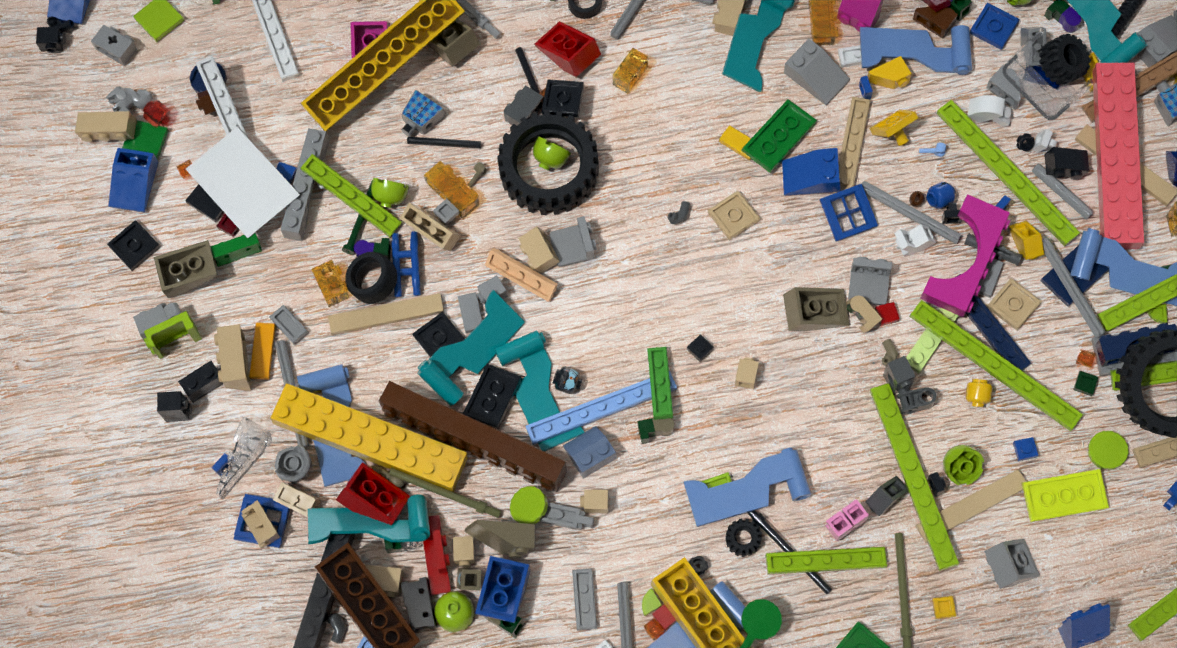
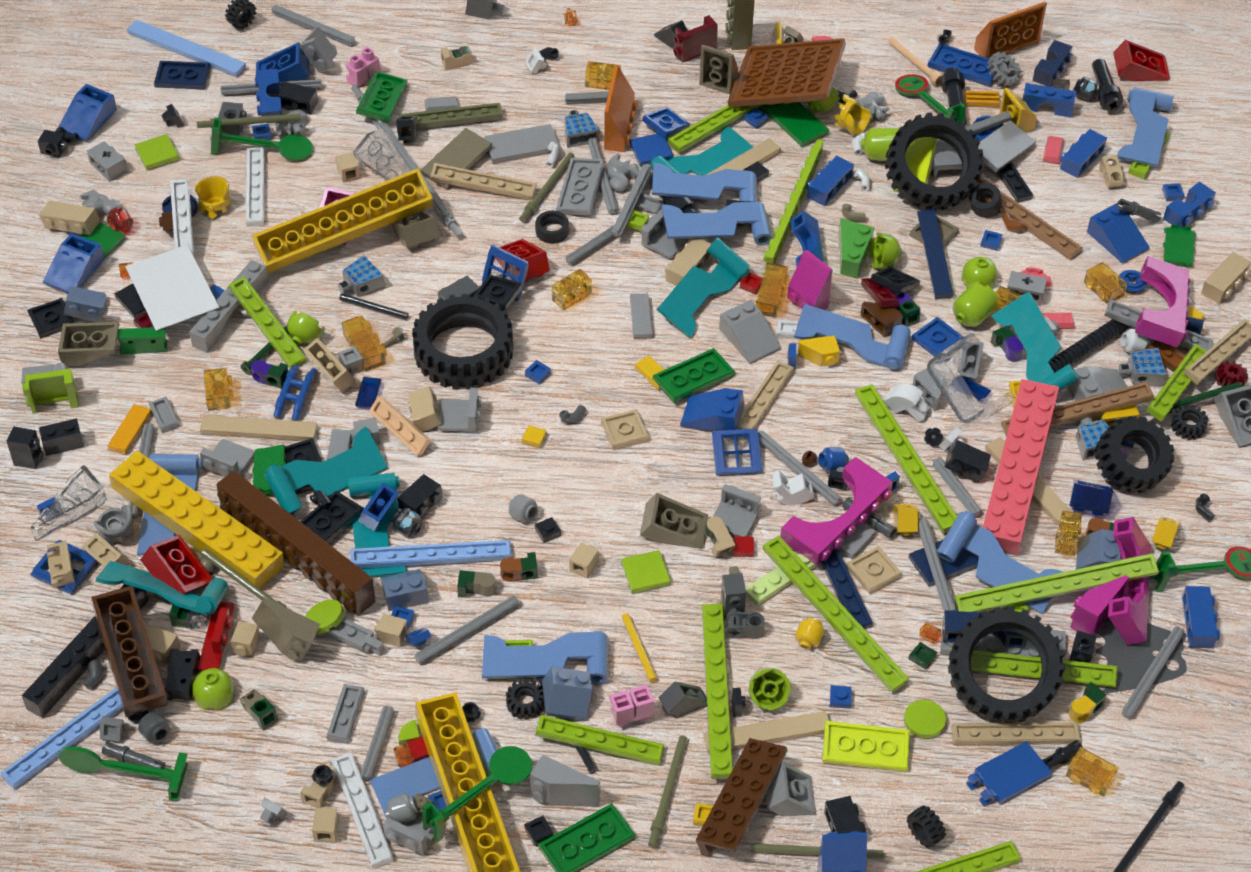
camera: 10 degrees right, 20 degrees down
(162, 222) = (85, 304): none -> sand blue bracket
(232, 357) = (98, 421): tan slope -> none
(238, 58) = (213, 195): none -> yellow hair
(357, 271) = (256, 391): black tyre -> none
(370, 358) = (226, 458): none -> light grey bracket
(411, 353) = (263, 459): none -> green piece
(469, 579) = (238, 661): dark tan brick -> none
(473, 375) = (320, 496): none -> black arm
(476, 243) = (368, 392): none -> clear blue tile
(503, 589) = (268, 675): blue slope -> none
(526, 68) = (475, 266): black bar -> none
(537, 374) = (378, 506): none -> blue brick
(550, 154) = (468, 335): lime cylinder -> none
(560, 67) = (505, 265): none -> blue piece
(570, 348) = (421, 495): none -> black brick
(599, 481) = (404, 613): none -> blue tile
(622, 500) = (418, 637): none -> blue plate
(629, 173) = (537, 372): none -> blue tile
(651, 248) = (534, 436): none -> yellow tile
(660, 383) = (495, 545): bright green tile -> none
(663, 479) = (466, 630): none -> light grey axle
(670, 333) = (523, 508): none -> light grey head
(686, 402) = (520, 568): none -> leg
(705, 80) = (640, 316): none -> light grey tile
(782, 523) = (567, 693): none -> sand blue slope
(798, 12) = (751, 283): none -> red tile
(806, 367) = (645, 571): none -> lime tile
(807, 621) = (562, 786): none -> light grey slope
(827, 451) = (639, 648): none -> yellow bar
(894, 125) = (808, 390): yellow tile -> none
(938, 151) = (845, 424): light blue hand -> none
(976, 585) = (740, 796): none -> reddish brown bracket
(1051, 614) = (803, 850): none -> olive bar
(1064, 59) = (994, 373): black tyre -> none
(1070, 579) = (843, 816): none -> black brick
(1146, 565) = (926, 826): none -> black tyre

